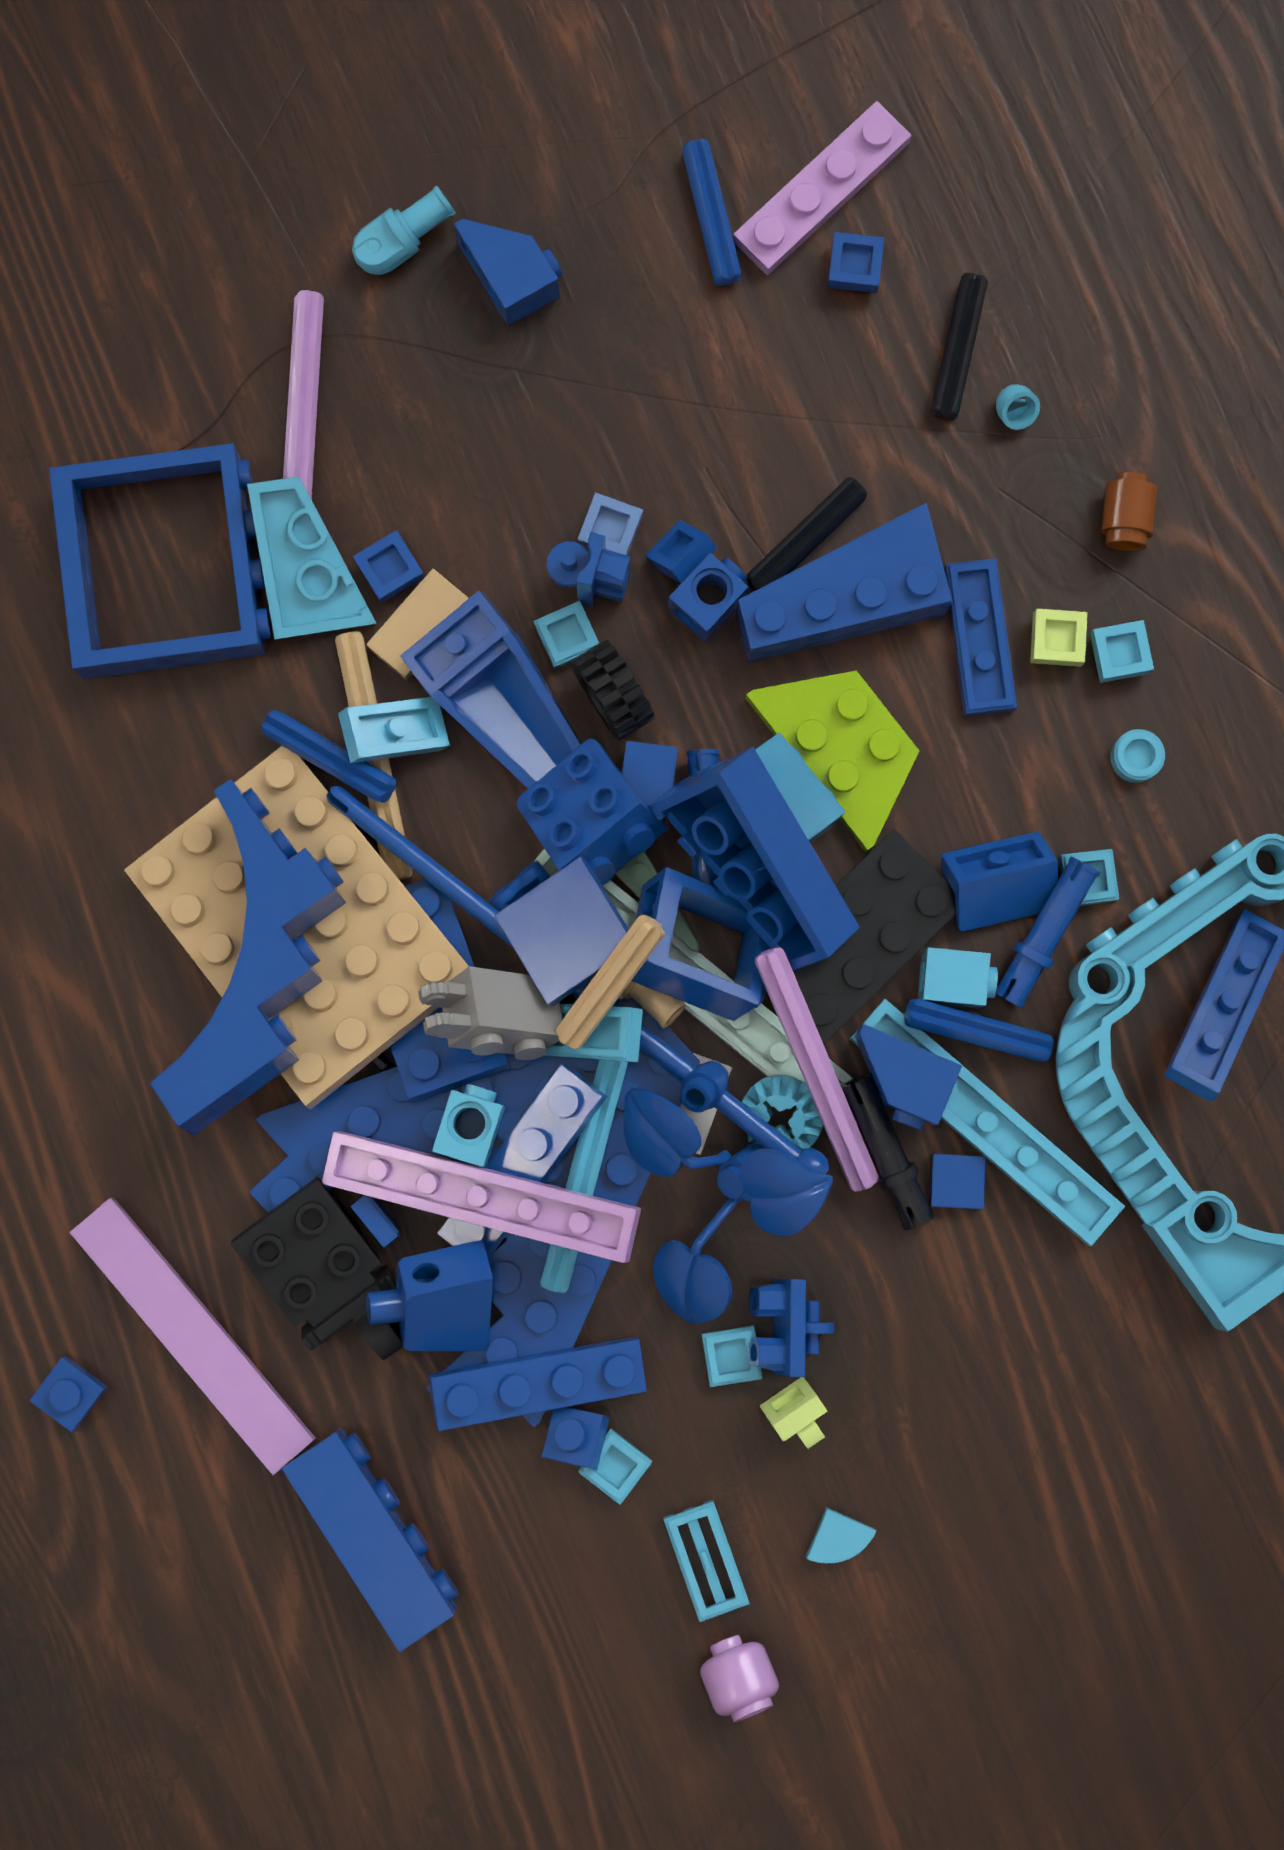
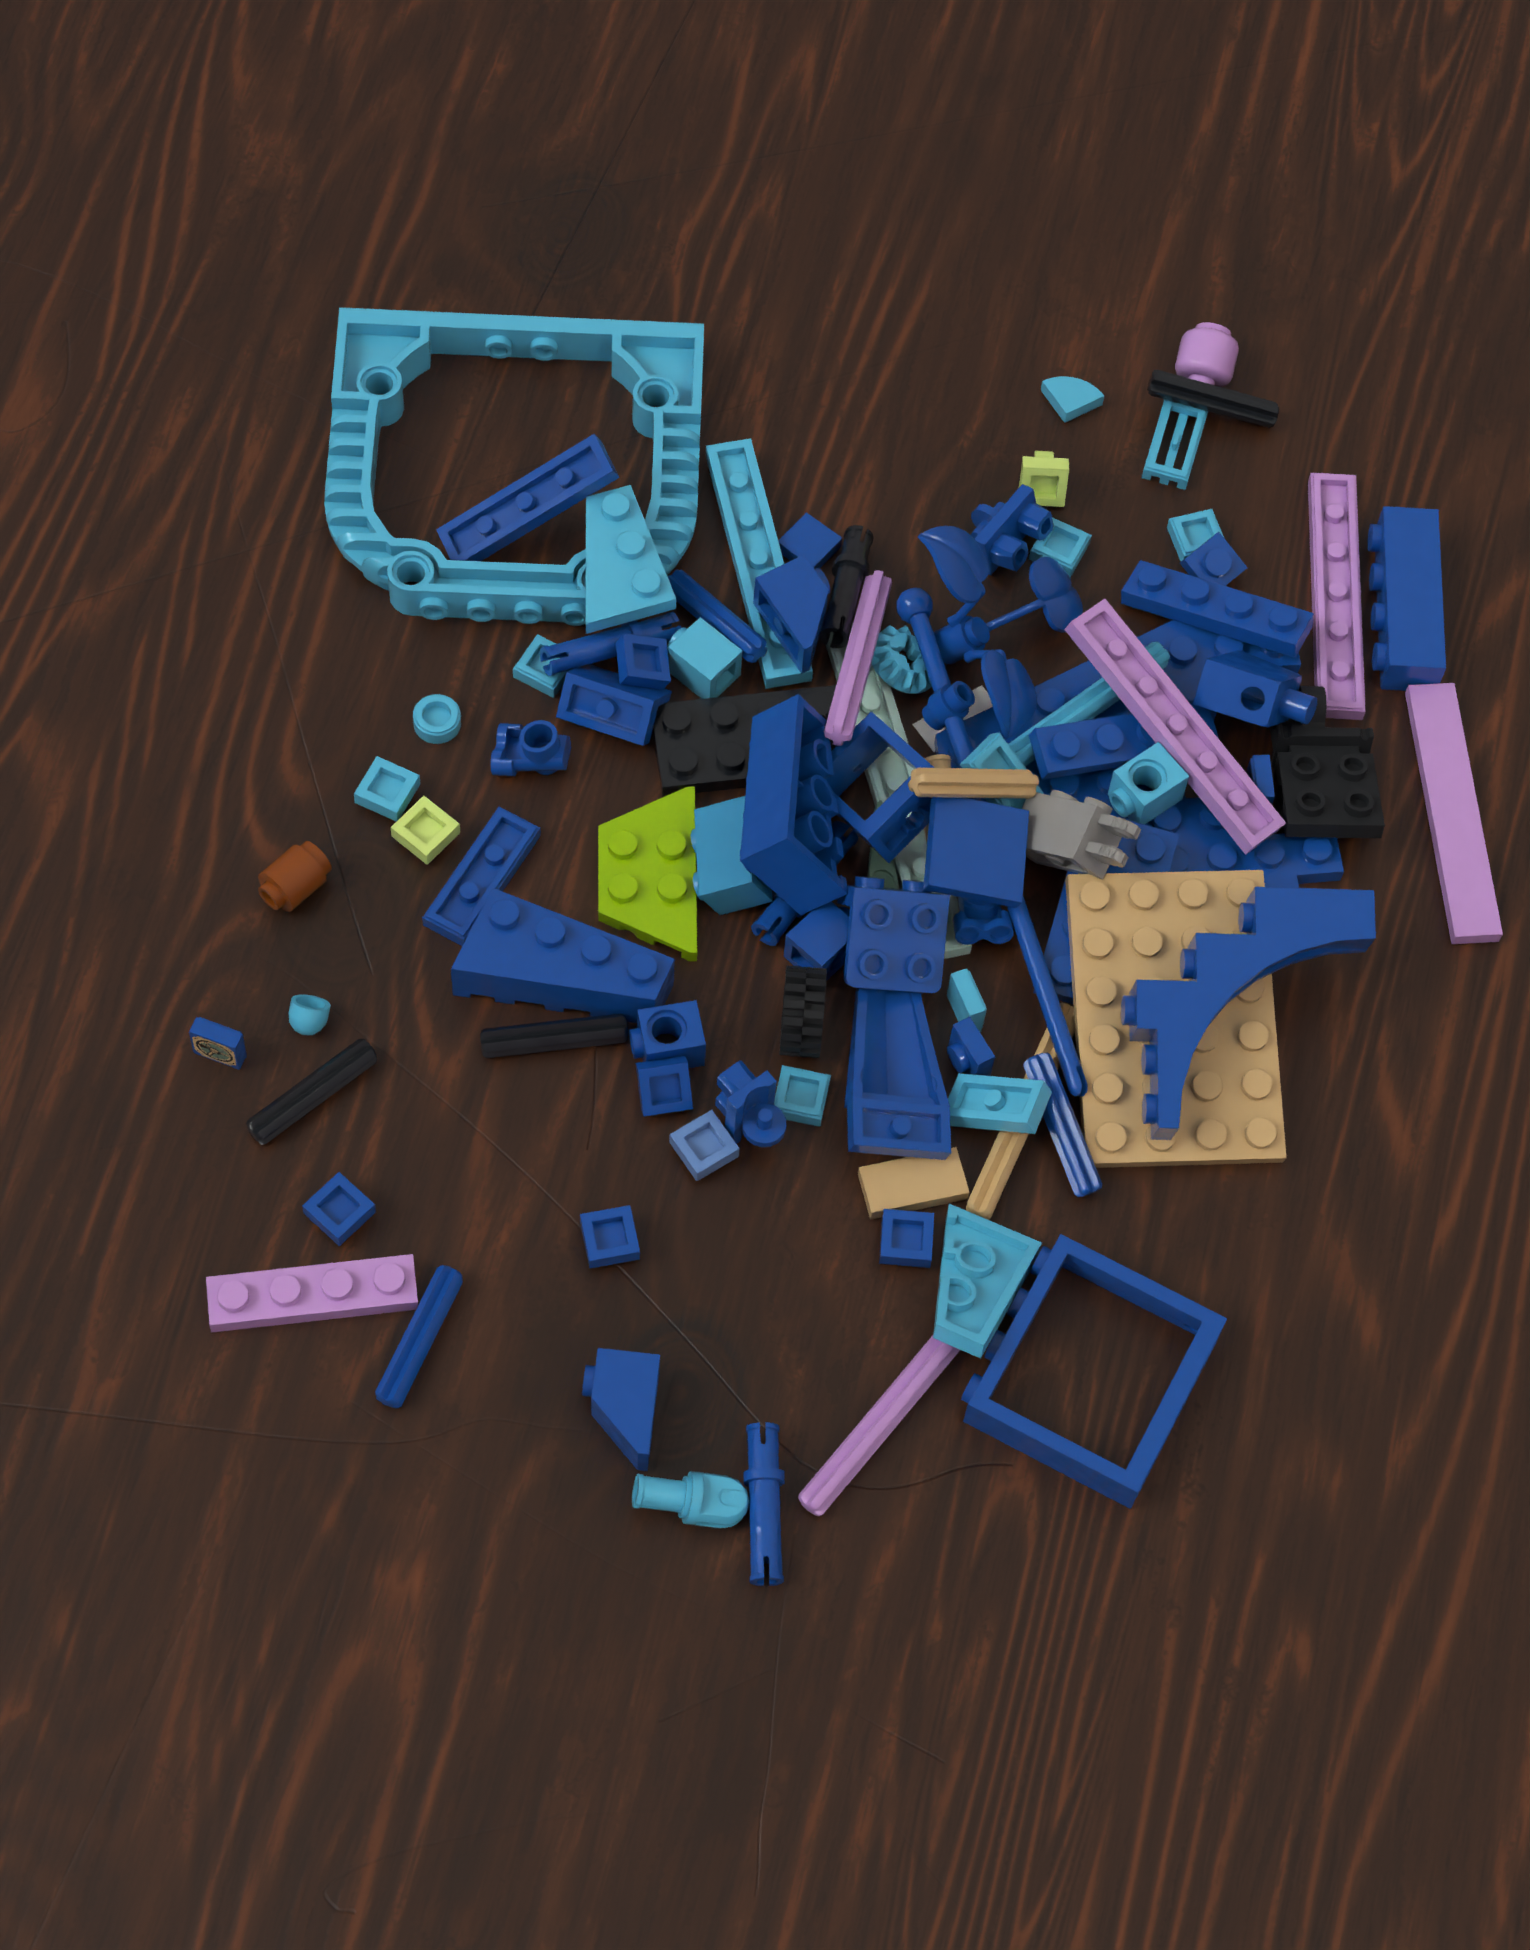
camera: 145 degrees left, 20 degrees down
(356, 286) = (764, 1496): none -> blue pin
(446, 1501) = (1336, 593): none -> lavender tile
(452, 767) = (969, 1049): none -> blue plate
(487, 813) = (966, 998): none -> medium azure tile
(626, 394) = (610, 1236): none -> blue plate
(701, 1632) = (1213, 398): none -> black axle
(1001, 925) = (643, 661): none -> blue plate
(1040, 773) = (529, 749): none -> blue plate
(1064, 323) = (218, 1042): none -> blue tile
(1096, 1002) = (621, 563): none -> medium azure wing

